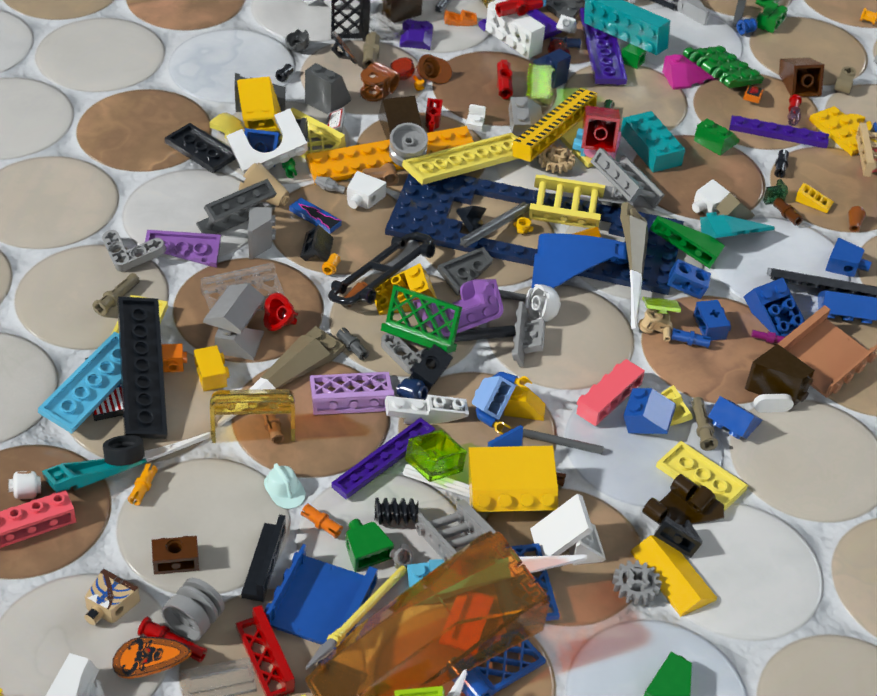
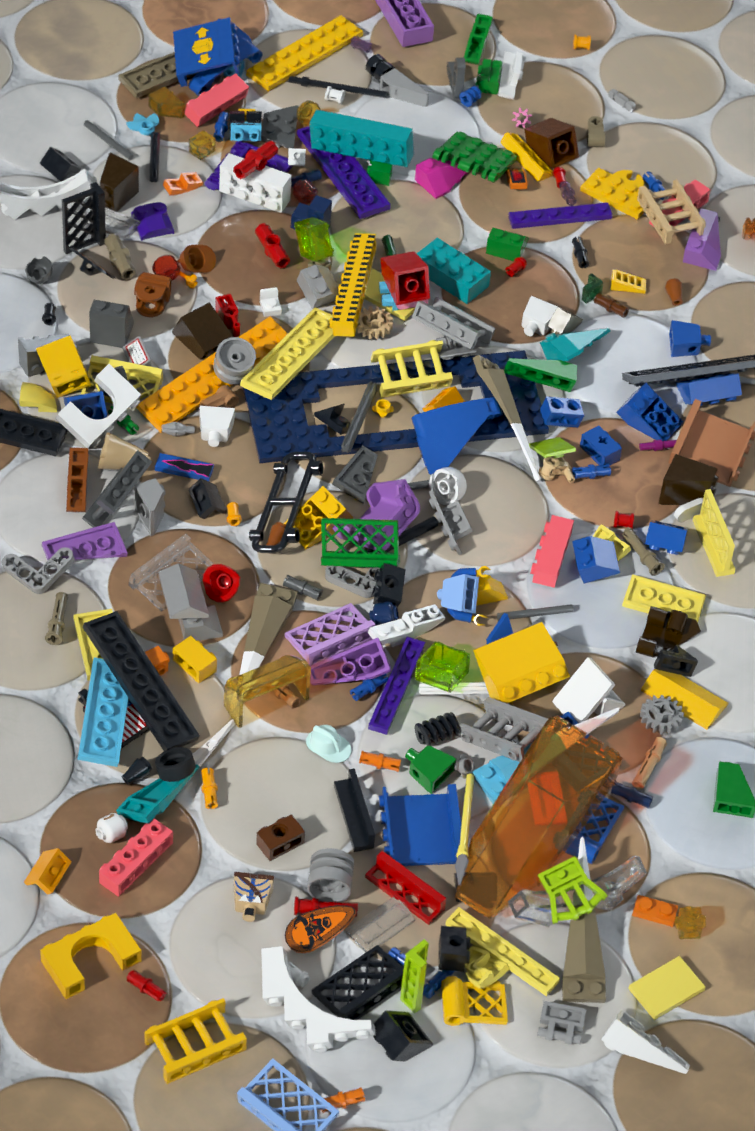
camera: 25 degrees left, 5 degrees up
(88, 444) = (138, 770): none -> black cone
(219, 188) = (77, 480): none -> dark orange slope
(356, 424) = (355, 664): none -> medium lavender wedge
(356, 448) = (368, 686): none -> blue pin
(560, 651) = (632, 794): none -> dark blue pin
(604, 621) = (653, 756): none -> tan pin
(699, 389) = (623, 520): none -> red bush
(717, 155) = (518, 264): none -> red pin
(773, 82) = (526, 156): none -> yellow slope
(781, 48) = (519, 121): none -> bright pink gear
(783, 435) = (715, 536): none -> light yellow fence
(791, 21) = (510, 74): none -> white bracket

